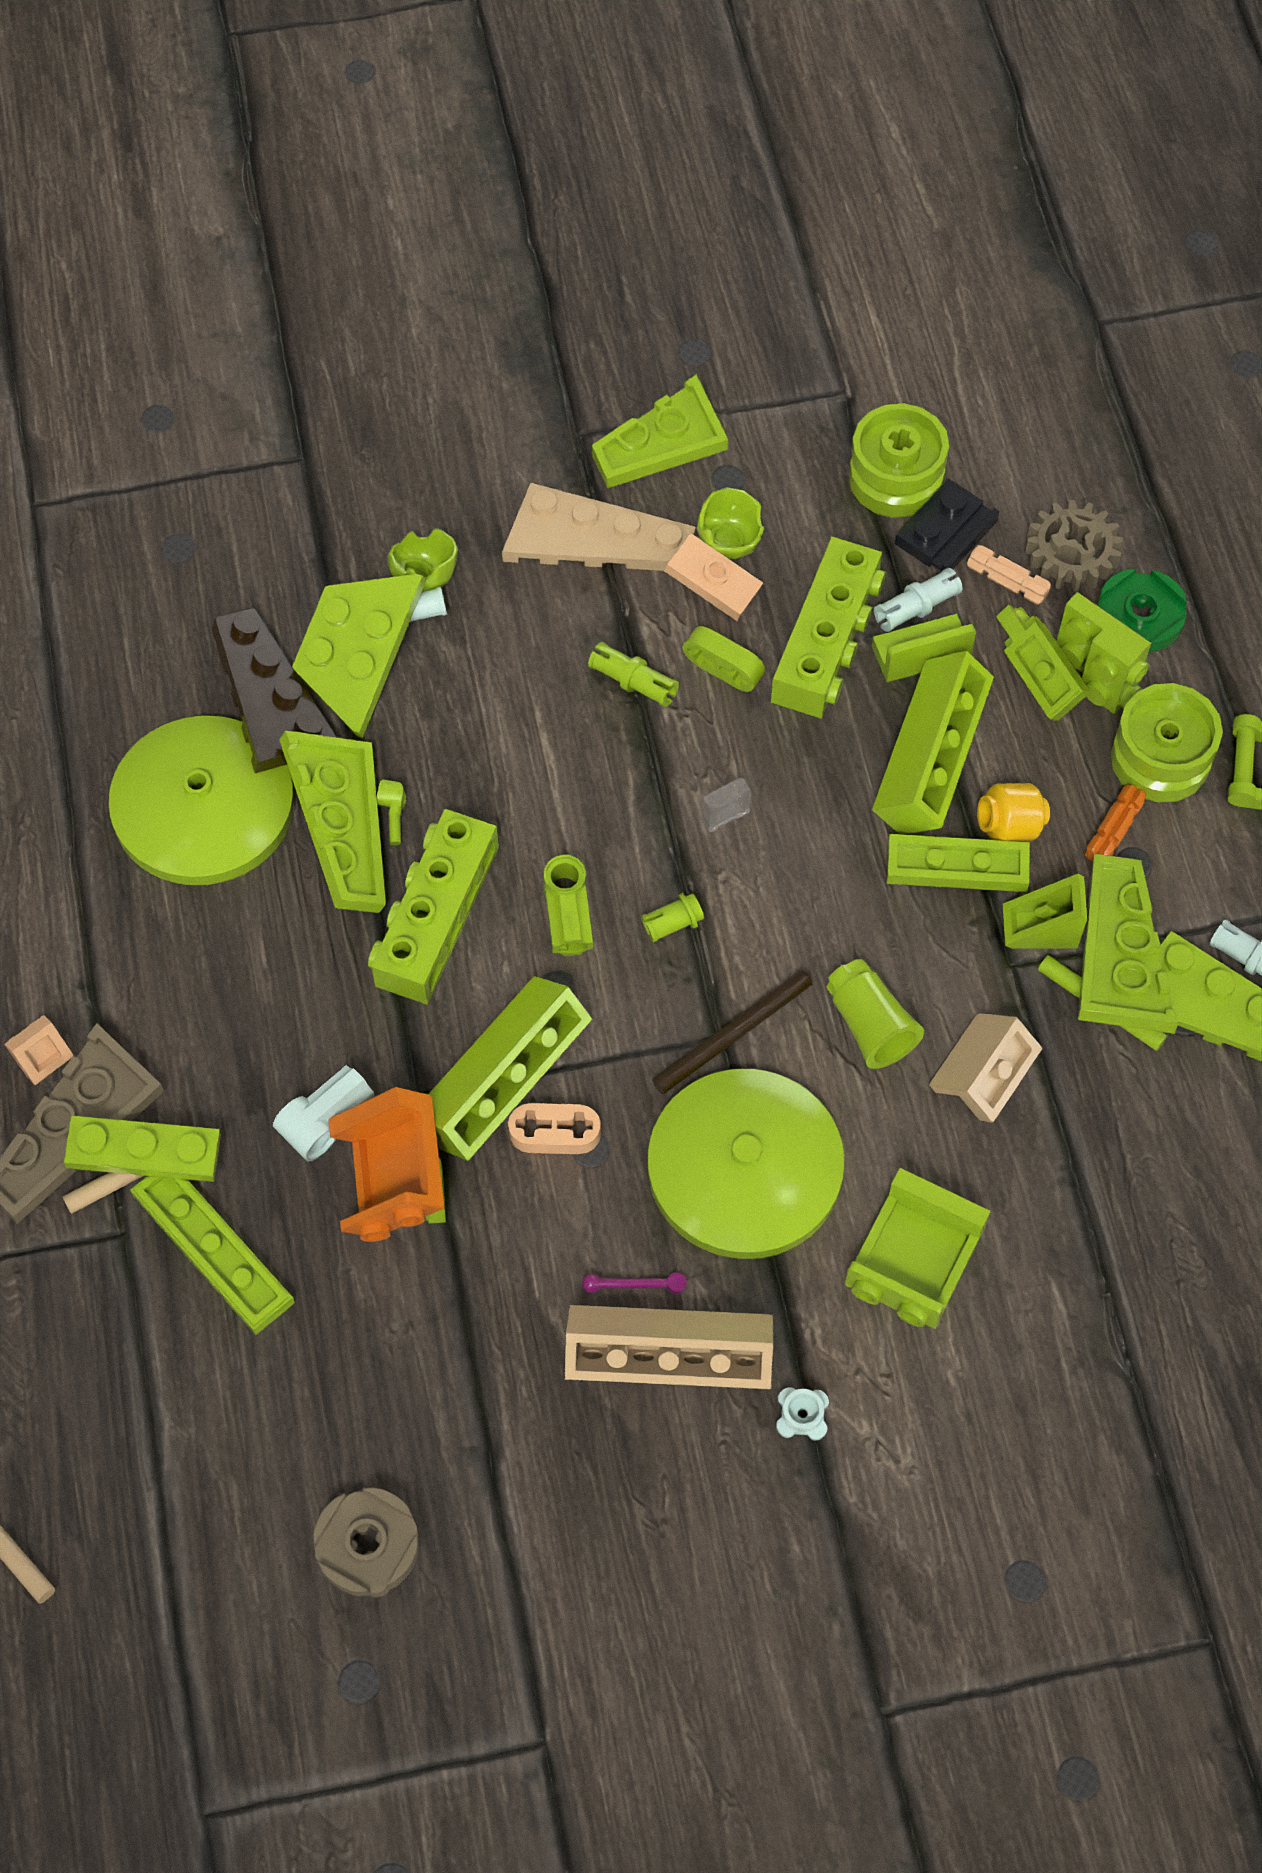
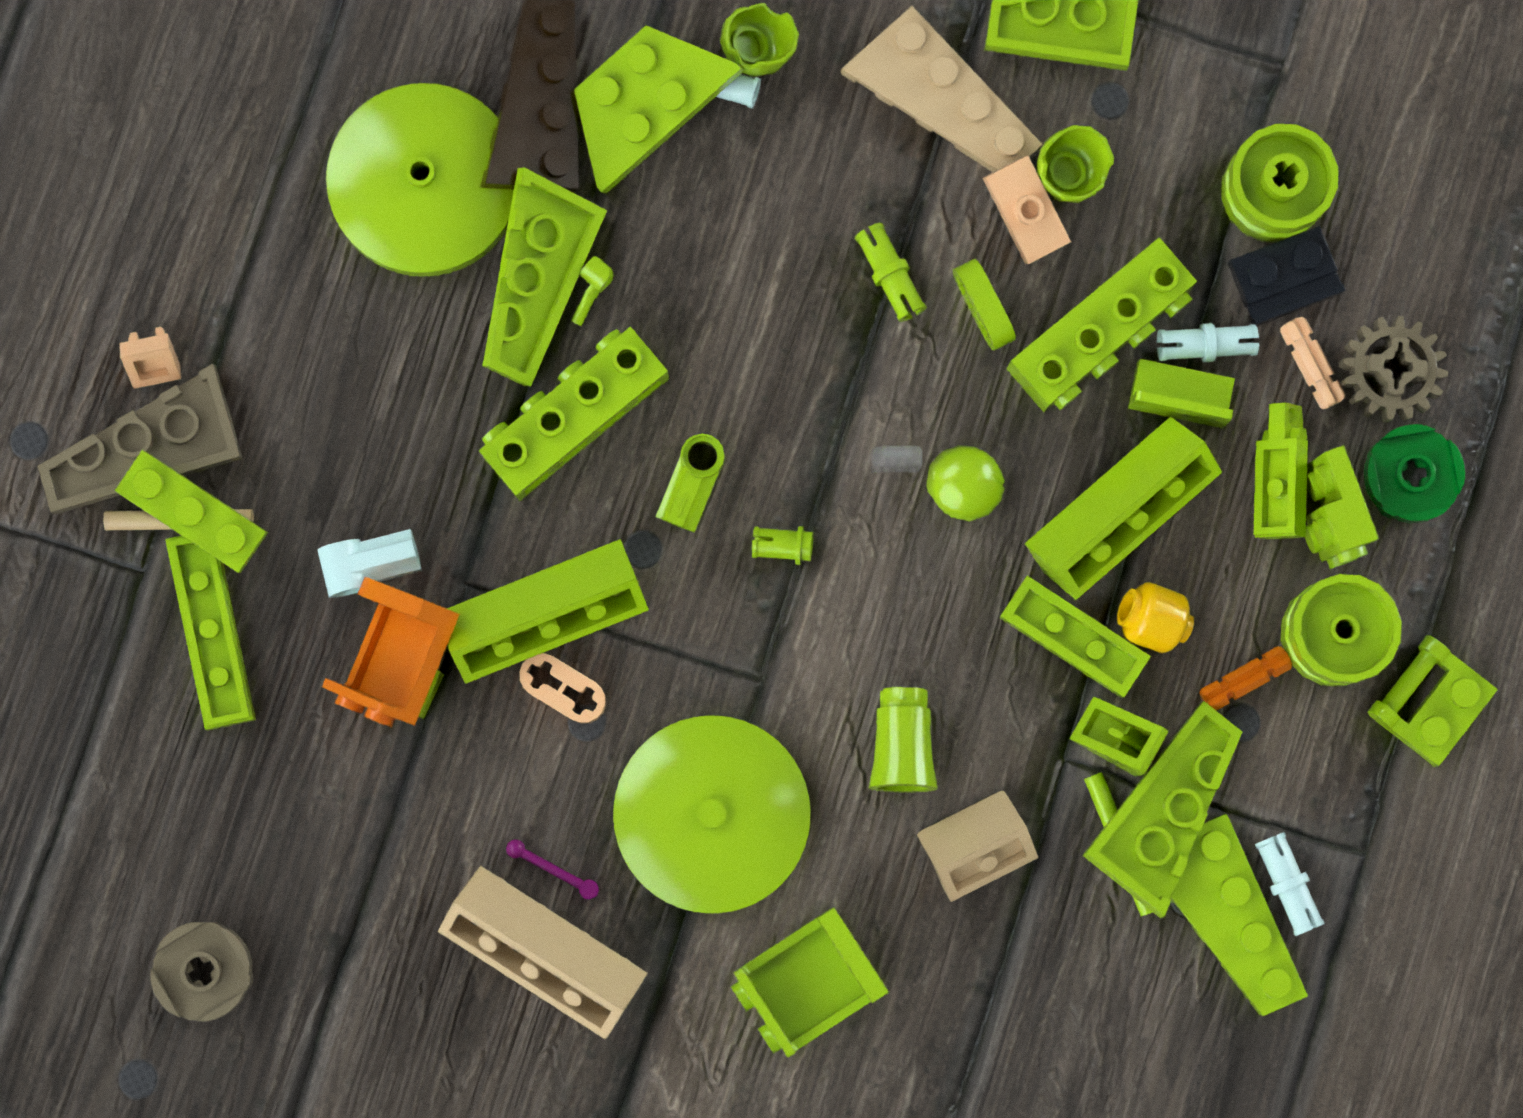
camera: 25 degrees right, 20 degrees up
(732, 1032) = (773, 684): dark brown bar -> none
(793, 796) = (965, 482): none -> lime hair
(802, 1399) = (627, 1081): light aqua plate -> none

